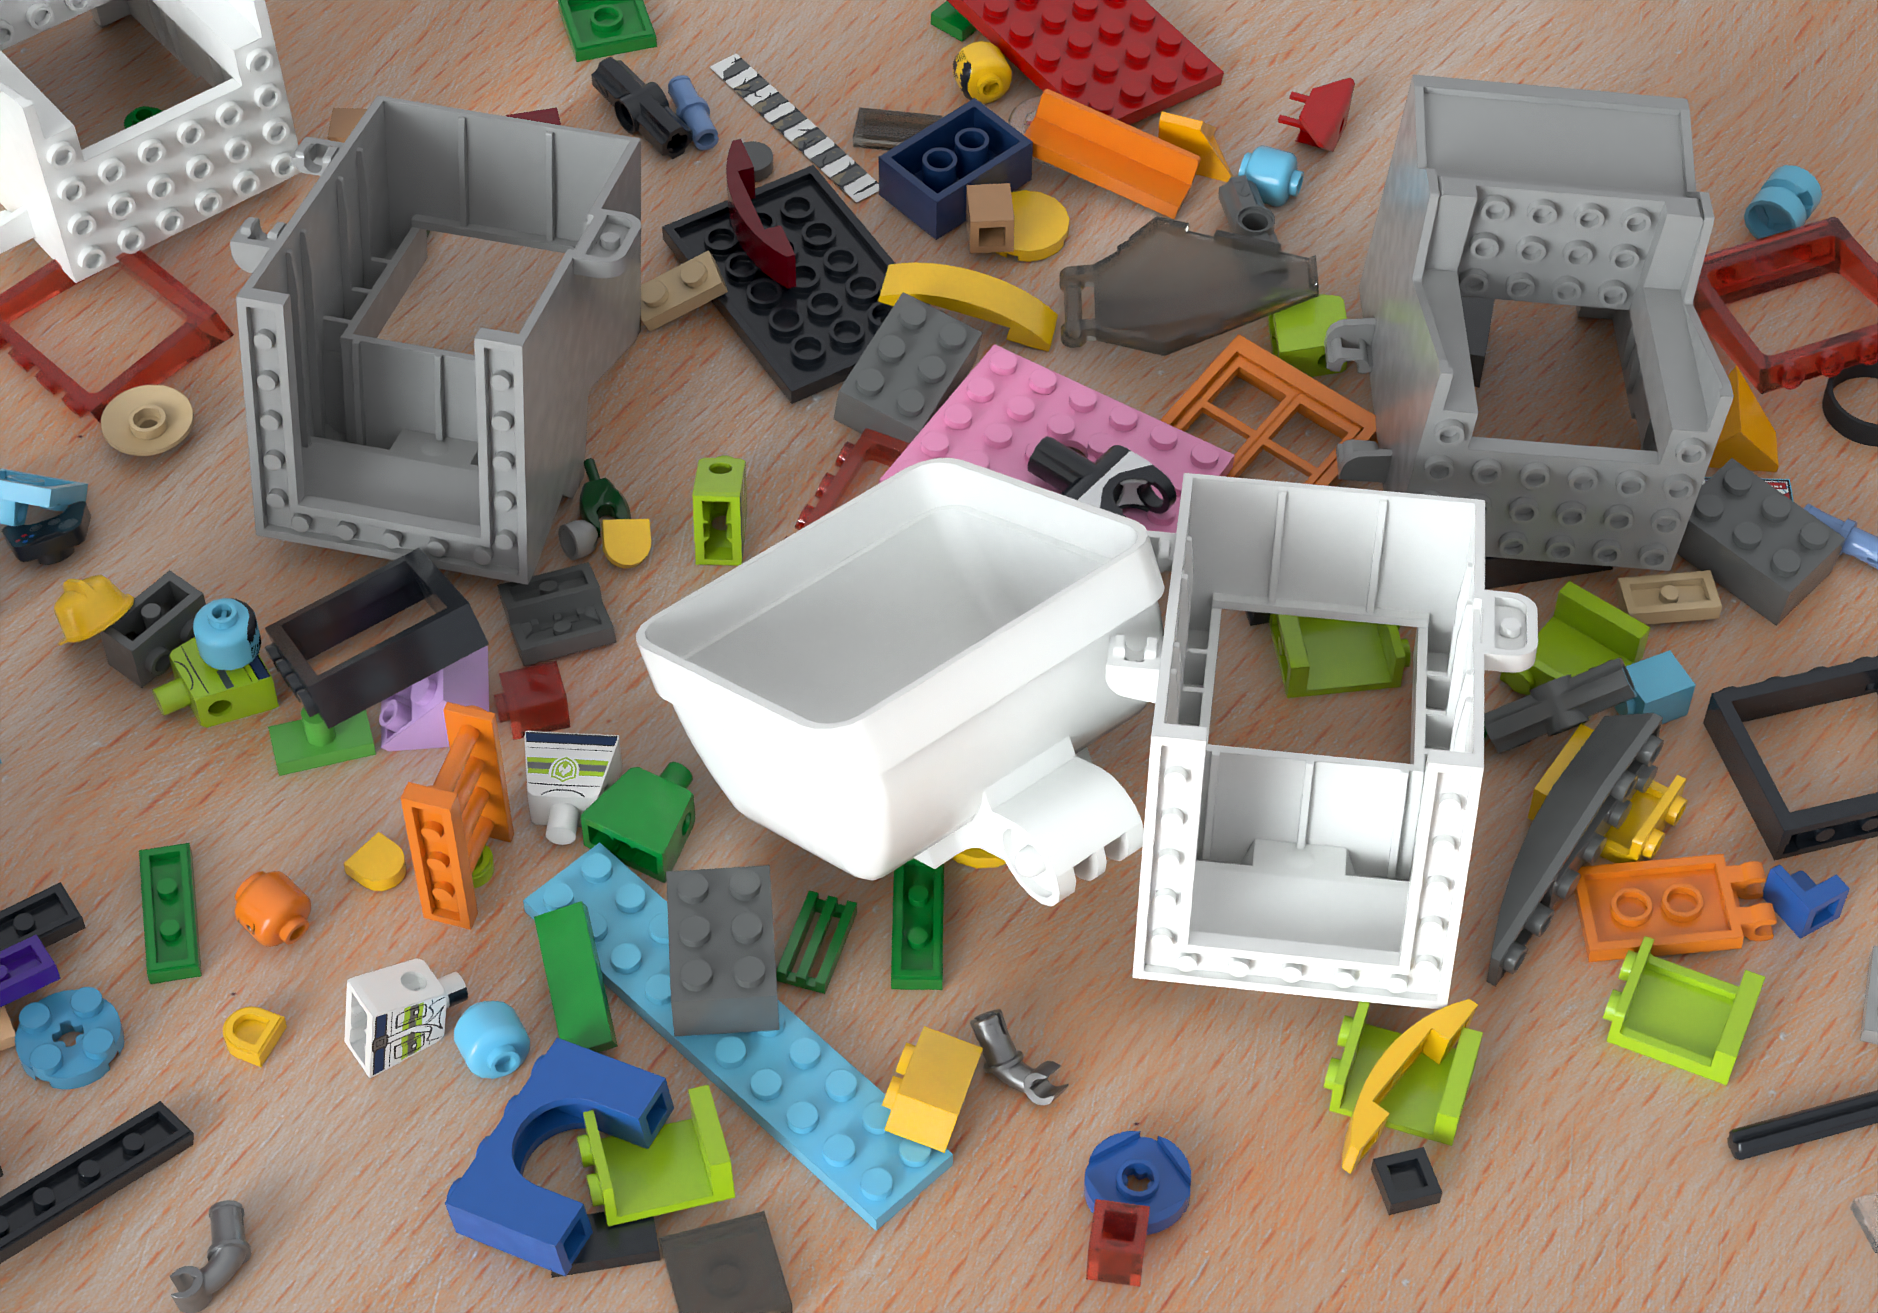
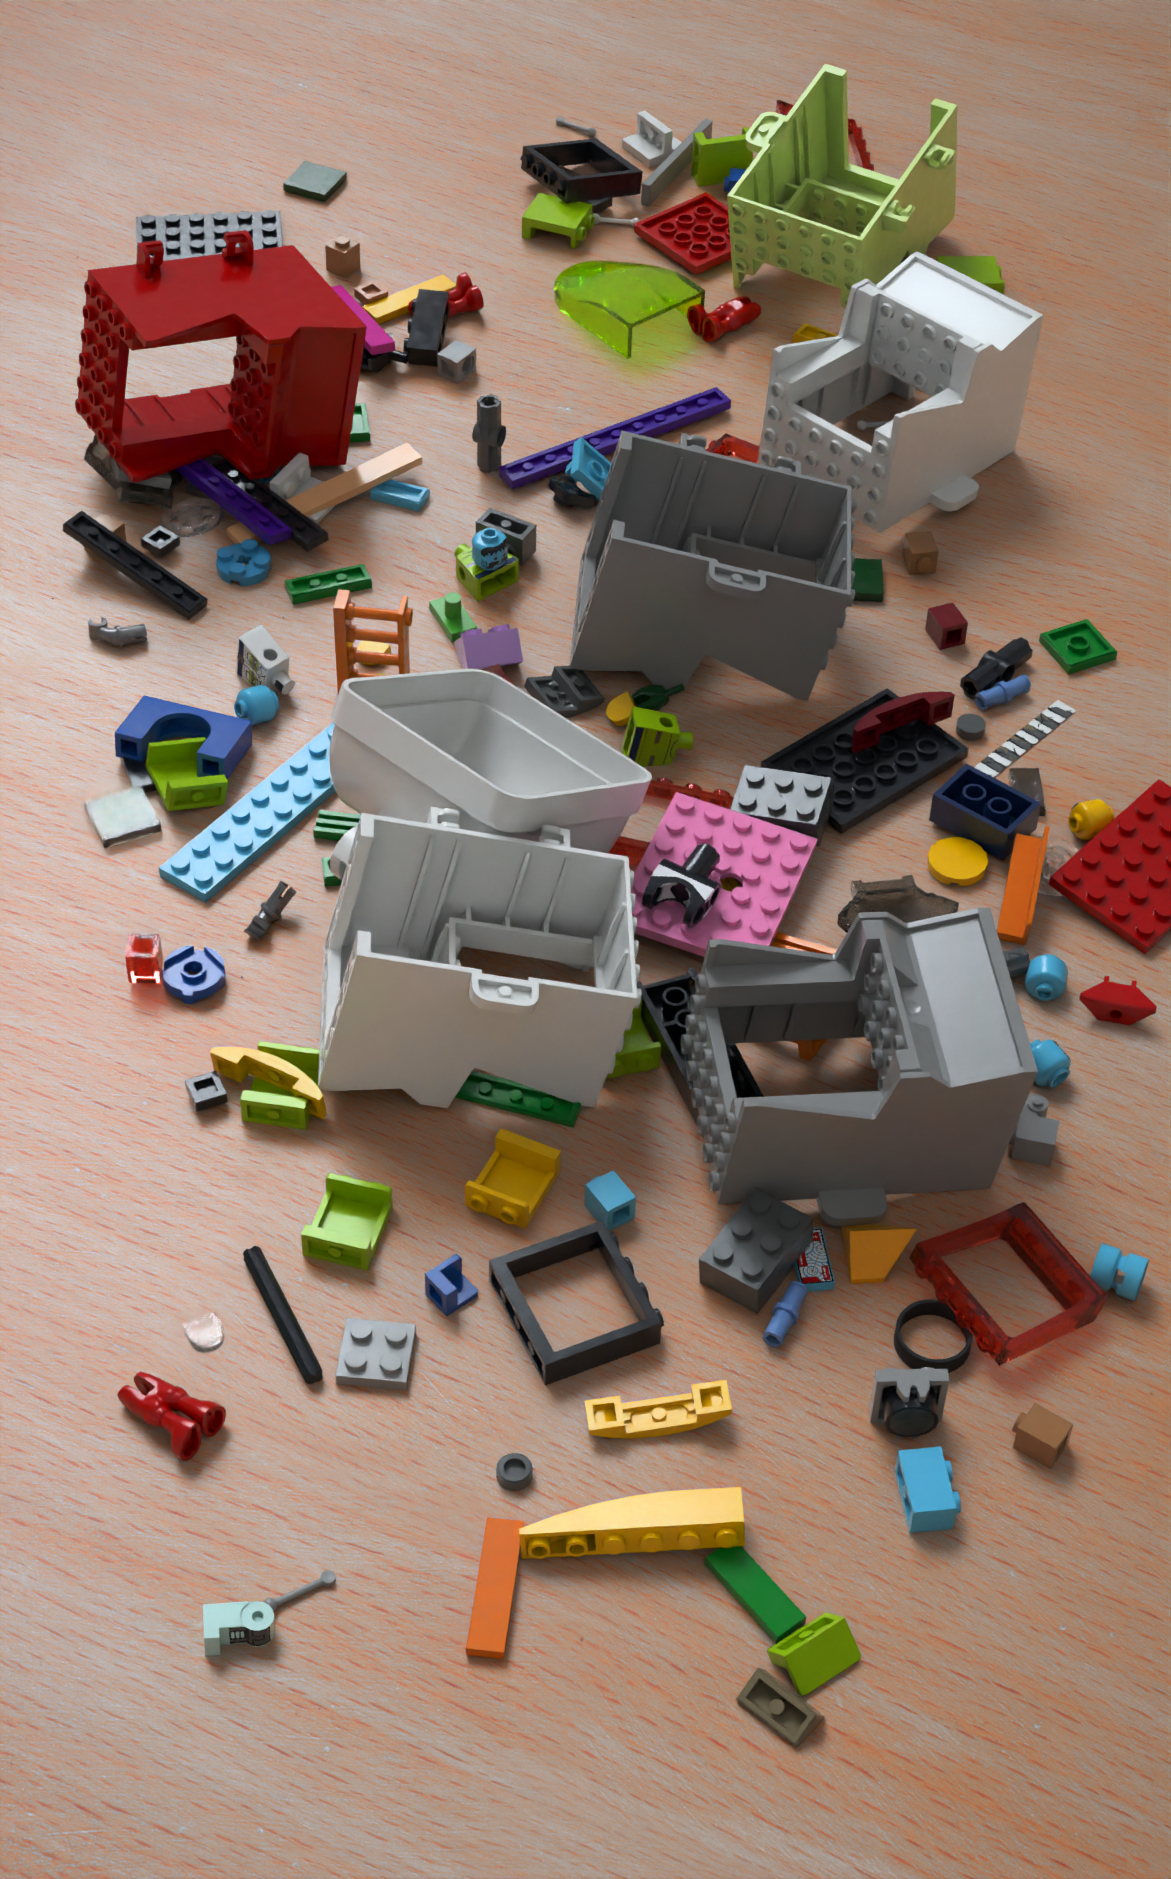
camera: 80 degrees right, 5 degrees down
(89, 607) = (505, 500): yellow piece -> none
(253, 1033) = (252, 621): yellow tile -> none
(272, 908) = (322, 613): orange head -> none
(388, 665) = (525, 613): black window -> none
(575, 978) = (294, 731): green tile -> none
(578, 538) = (619, 688): light grey hinge -> none
(681, 290) = (833, 702): tan plate -> none
(722, 951) = (300, 773): dark grey brick -> none
(932, 1088) = (237, 872): yellow brick -> none
(974, 295) = (863, 833): yellow slope -> none
(990, 218) = (940, 830): medium nougat brick -> none
(1198, 139) = (1069, 932): light orange slope -> none
(1559, 705) = (571, 1137): dark grey piece -> none
(1571, 829) = (465, 1147): dark grey wedge -> none
(1580, 637) = (638, 1163): lime panel -> none
(1669, 597) = (699, 1210): tan plate -> none
(1676, 901) = (432, 1215): orange tile -> none

